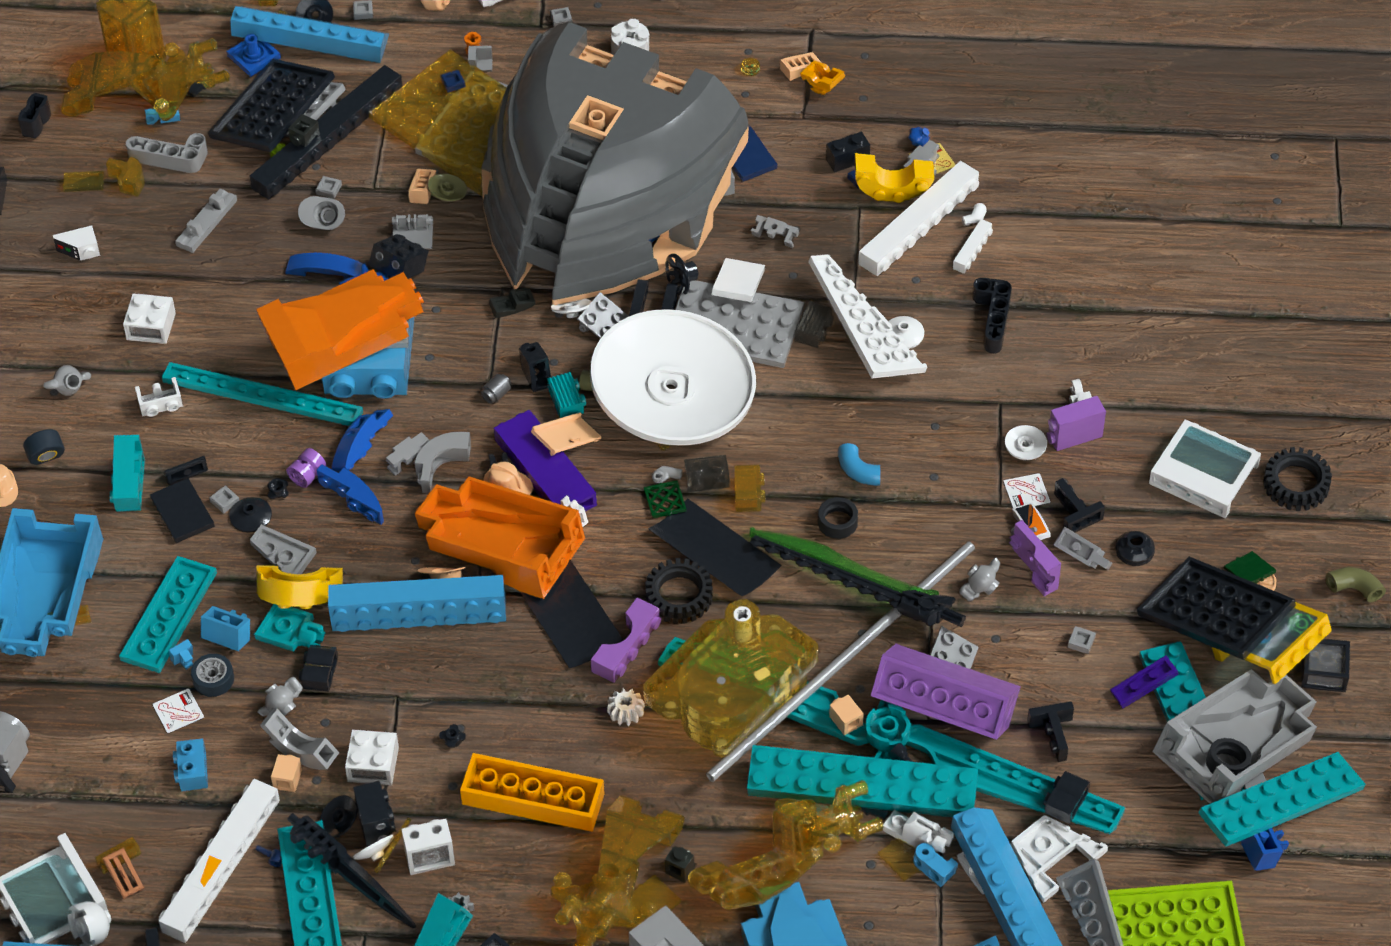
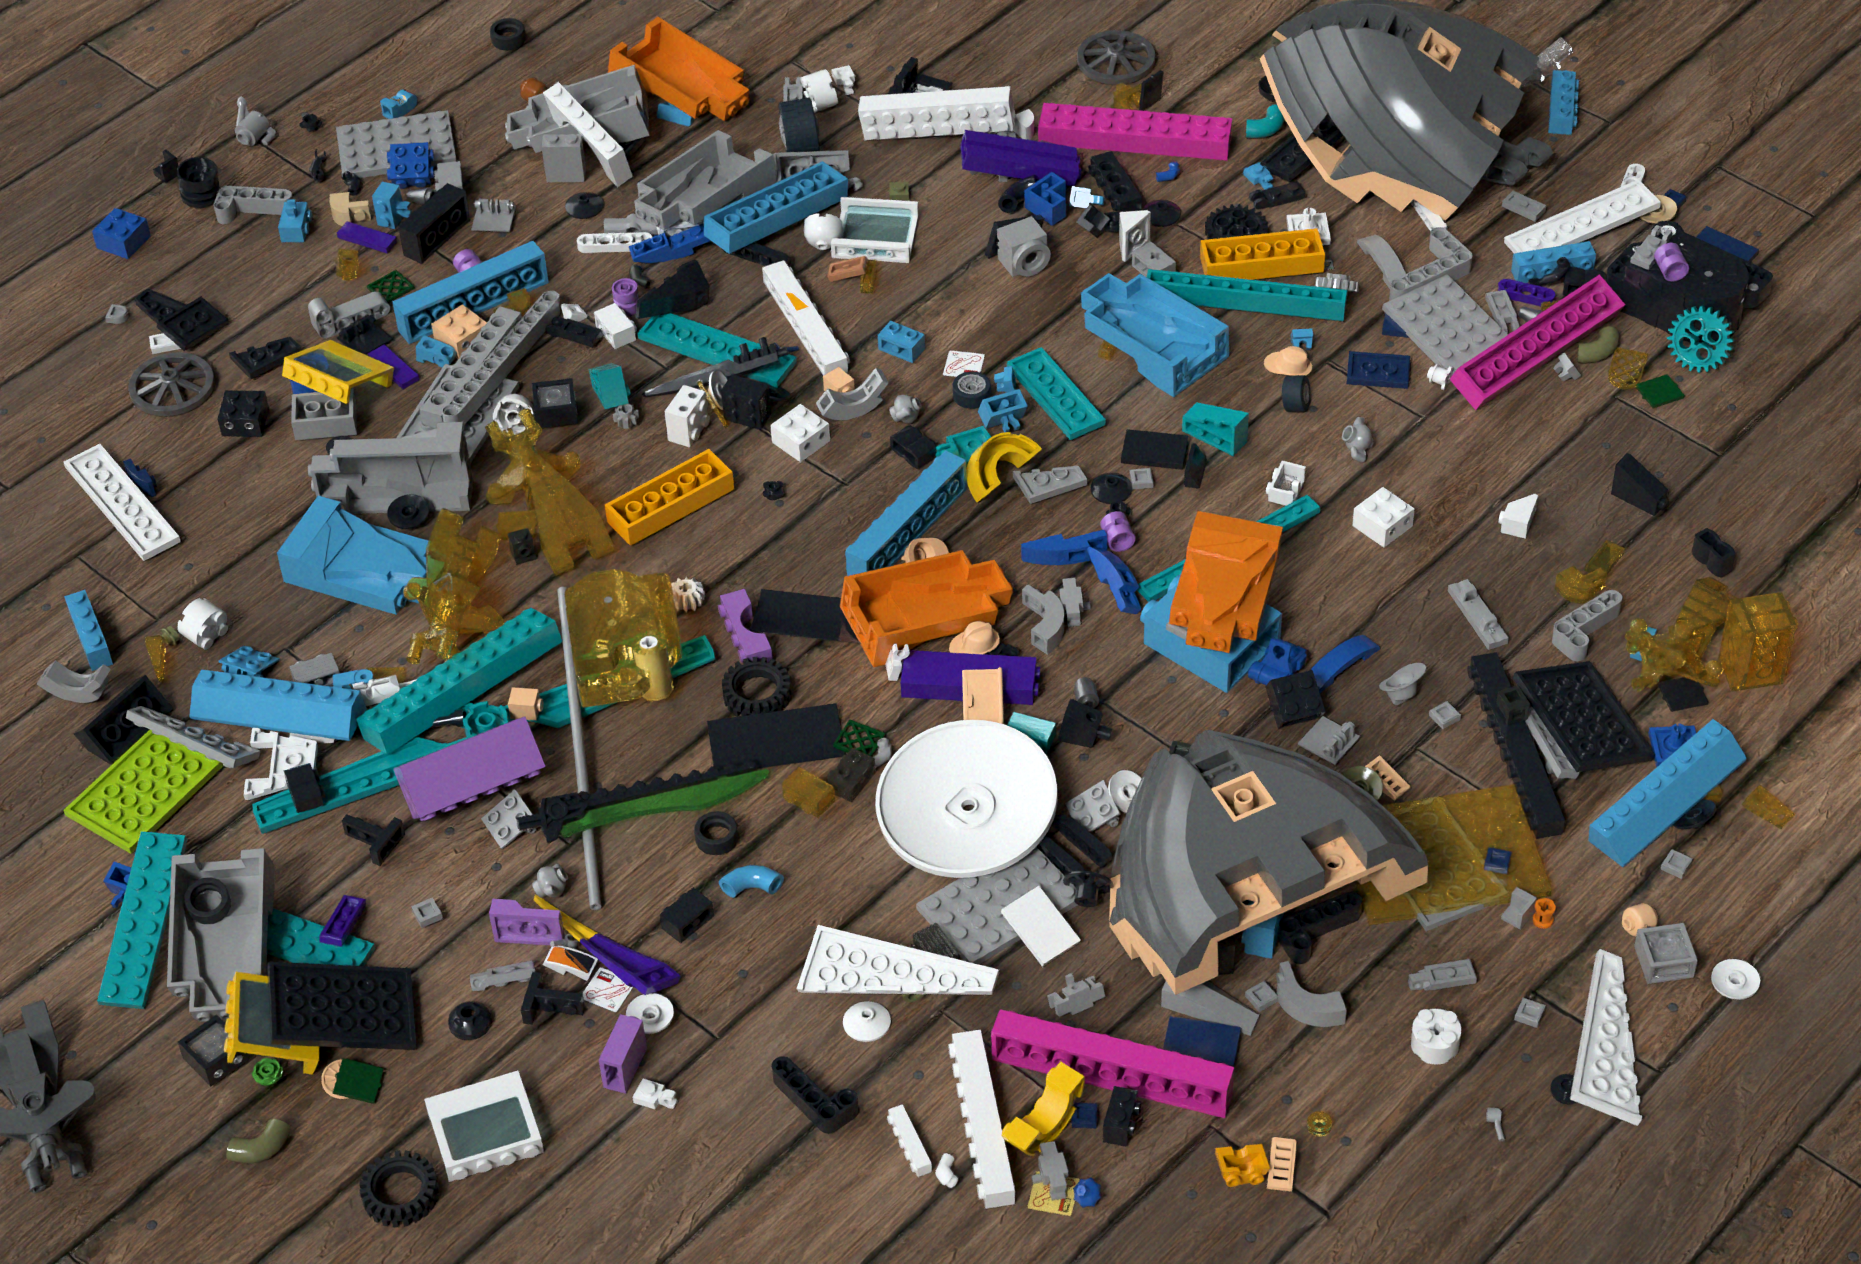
camera: 130 degrees right, 5 degrees down
(816, 172) = (1114, 1062): none -> dark pink brick
(926, 481) = (686, 915): none -> black brick
(948, 903) = (316, 670): none -> light grey brick
(1000, 475) = (628, 965): none -> dark purple plate

